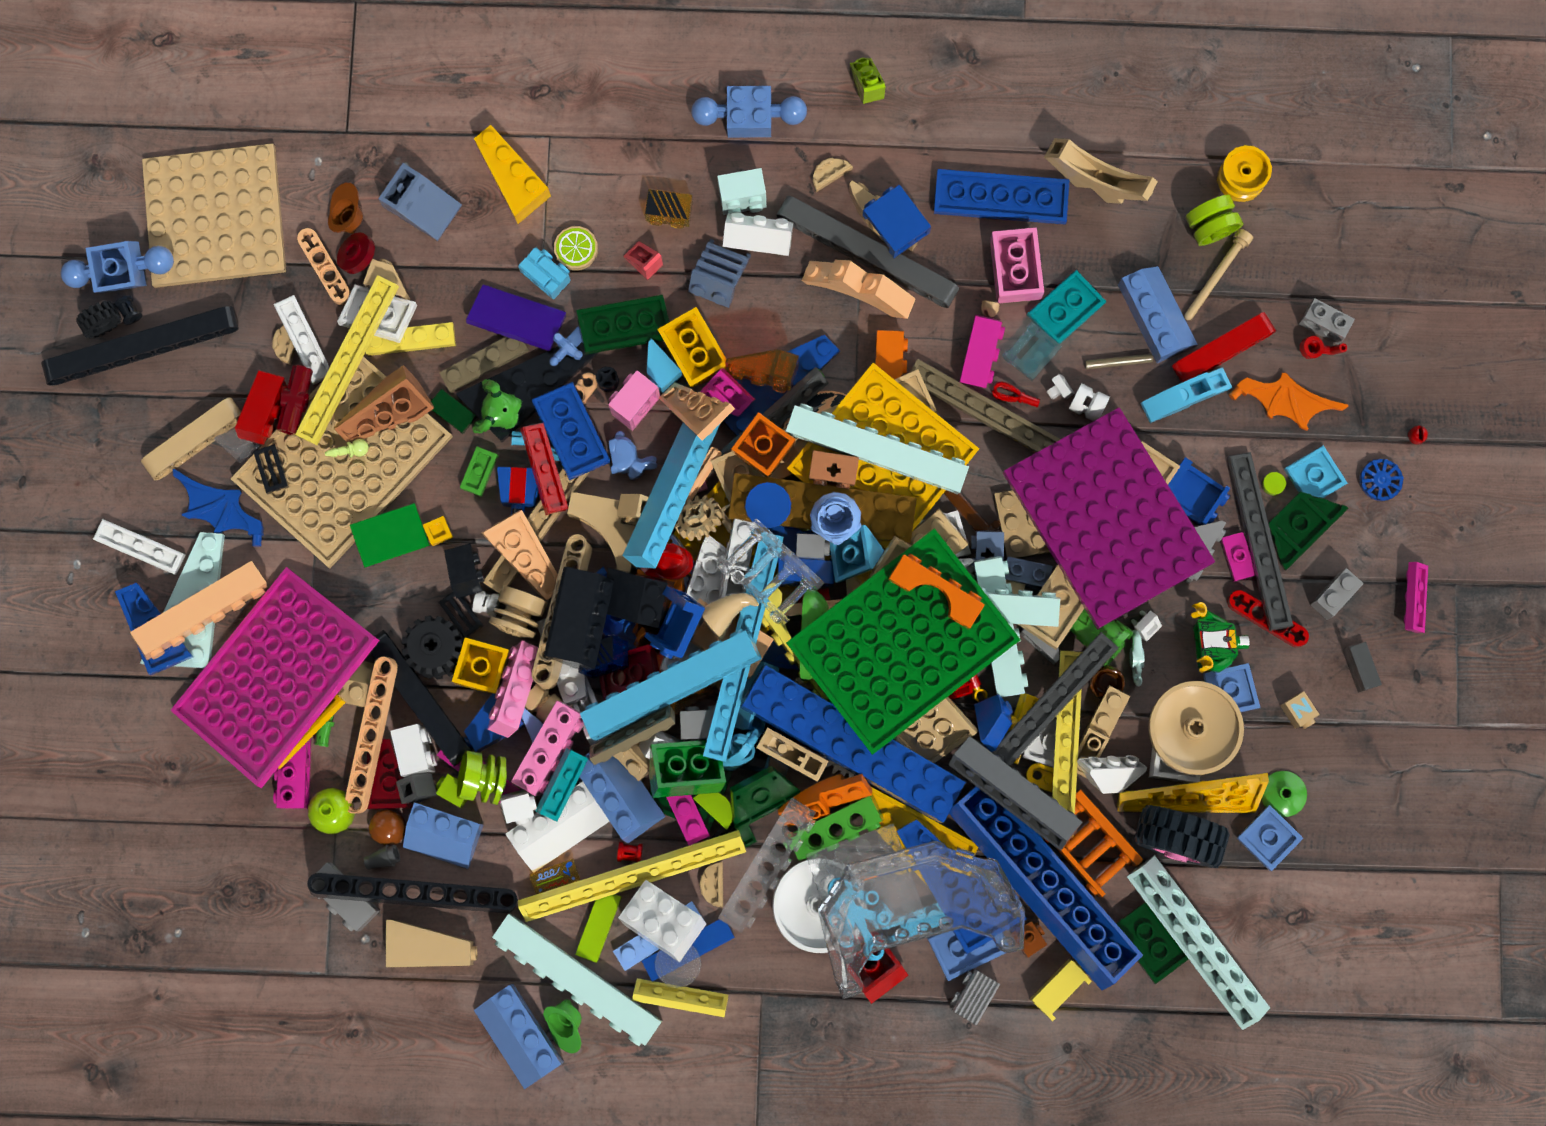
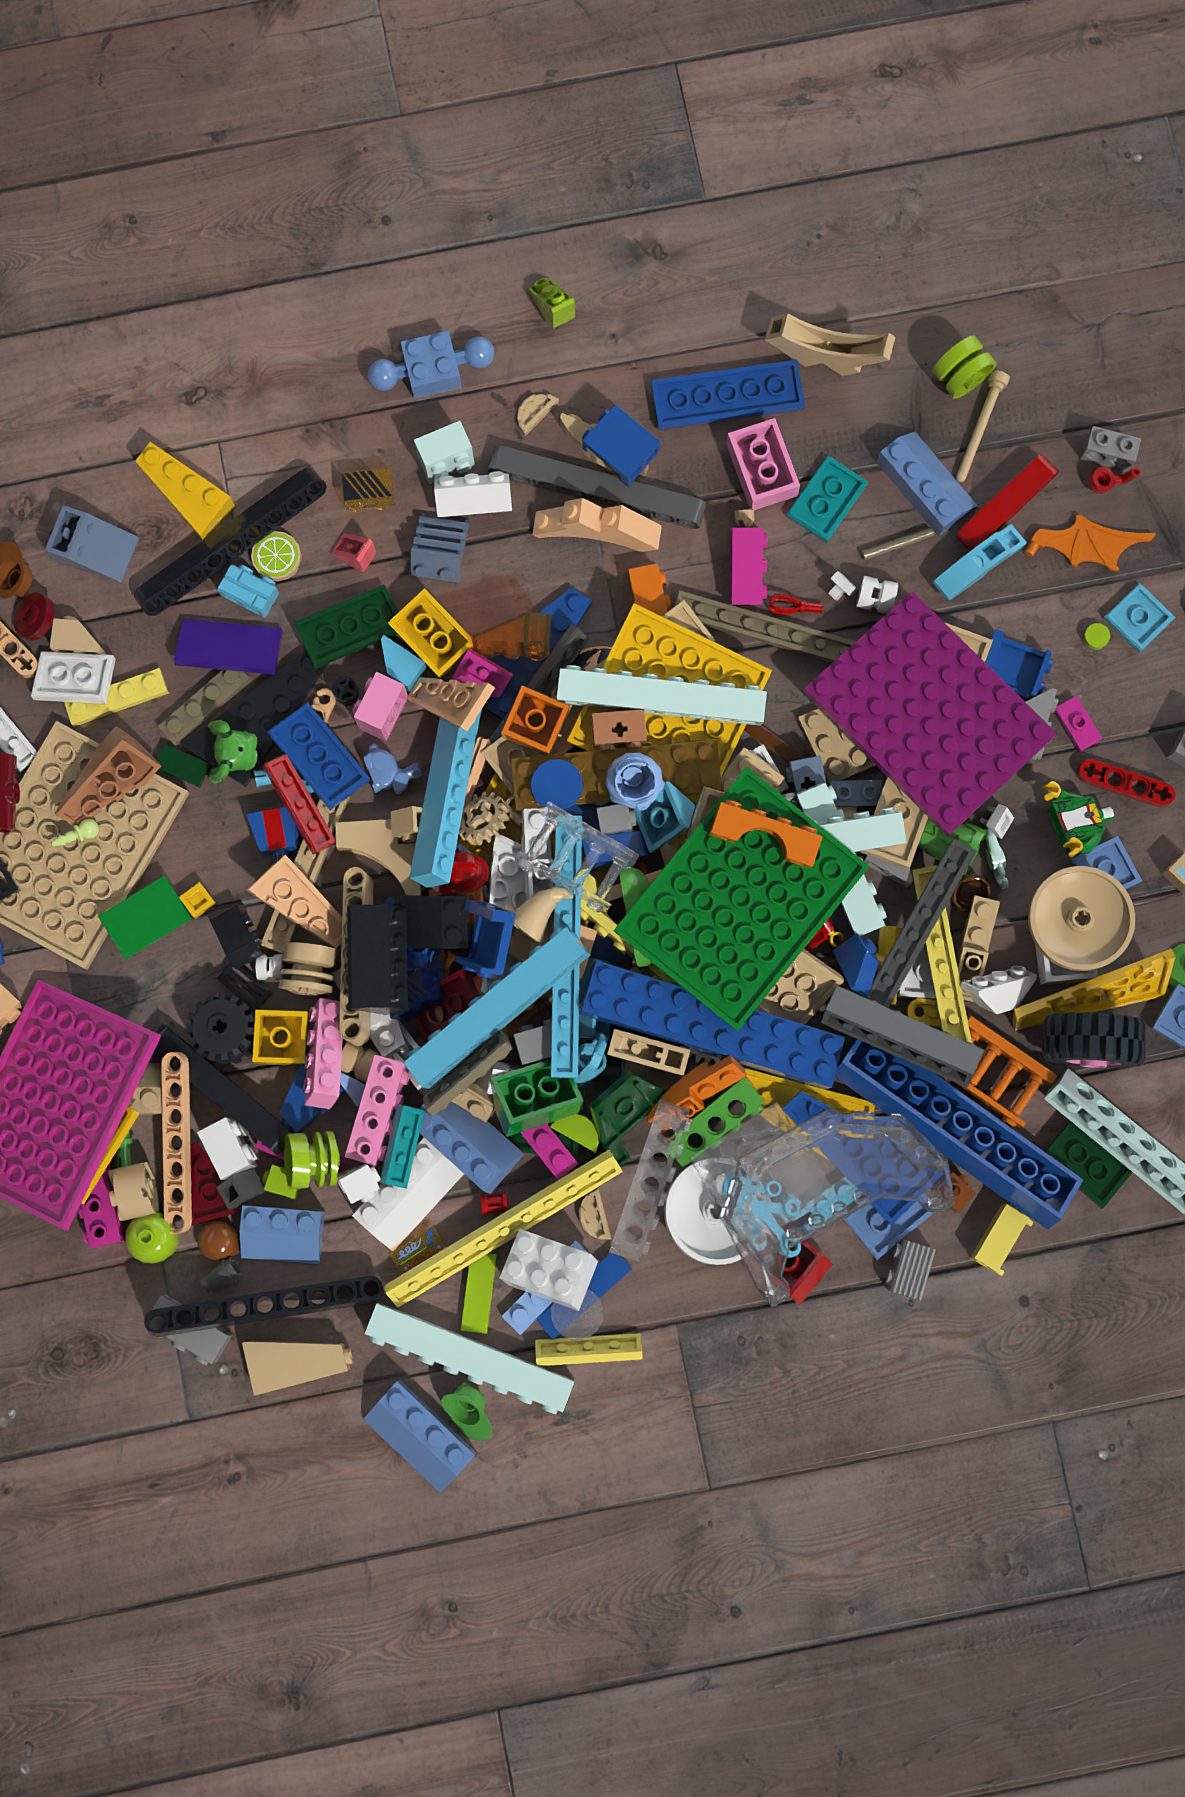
camera: 15 degrees left, 0 degrees up
(325, 768) = (133, 1191): none -> tan brick
(347, 360) = (52, 736): light yellow plate -> none
(479, 471) = (227, 824): bright green plate -> none
(539, 226) = (230, 541): none -> black beam
(567, 346) = (293, 665): medium blue sword -> none
(1038, 354) = (808, 558): clear light blue plate -> none
(1244, 173) = (984, 309): yellow wheel -> none
(1260, 541) = (1097, 702): dark grey tile -> none
(1301, 525) = (1138, 673): dark green wing -> none

